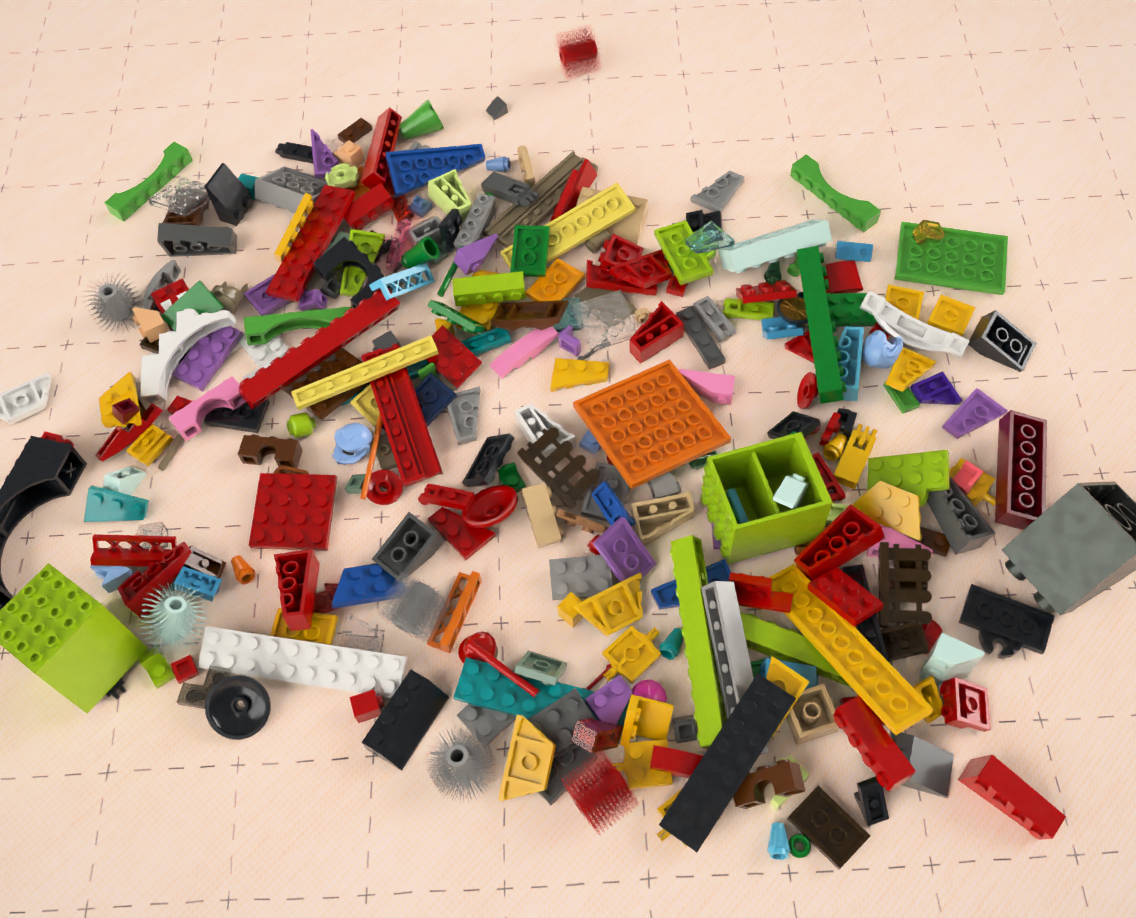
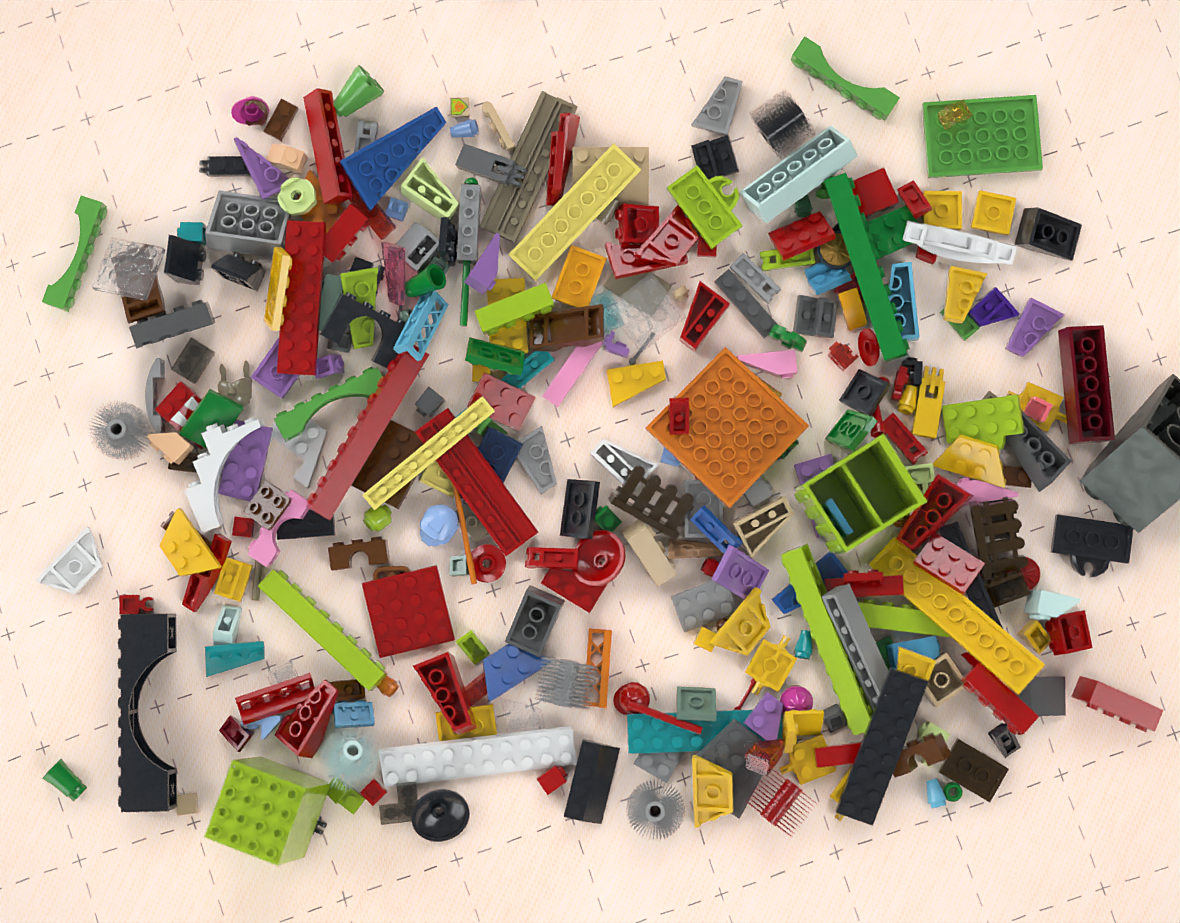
camera: 15 degrees left, 25 degrees up
(84, 577) = (236, 733): none -> dark red slope
(125, 410) = (201, 559): dark red slope -> none
(204, 270) = (193, 360): none -> clear smoke plate
(206, 385) = (268, 505): none -> bracket
(207, 505) = (323, 630): none -> lime brick
(268, 215) = (240, 271): none -> black slope
(332, 117) = (250, 111): none -> dark pink piece
(338, 554) = (473, 647): none -> lime slope
(497, 108) = (434, 45): dark grey slope -> none
(500, 150) = (459, 107): none -> tile
(530, 250) = (543, 250): green plate -> none
(607, 394) = (678, 415): none -> red slope
(709, 238) = (729, 190): clear light blue wing -> none
(731, 364) = (788, 339): none -> green plate
(762, 361) = (815, 316): none -> dark grey slope
(770, 203) = (782, 123): none -> black piece
(779, 396) = (841, 355): none -> clear red brick
(791, 491) = (886, 496): light aqua slope -> none
(799, 360) = (852, 309): none -> light orange slope
(853, 251) = (880, 154): dark azure bracket -> none
(878, 286) = (914, 199): none -> red plate
(879, 352) = (929, 284): light blue helmet -> none

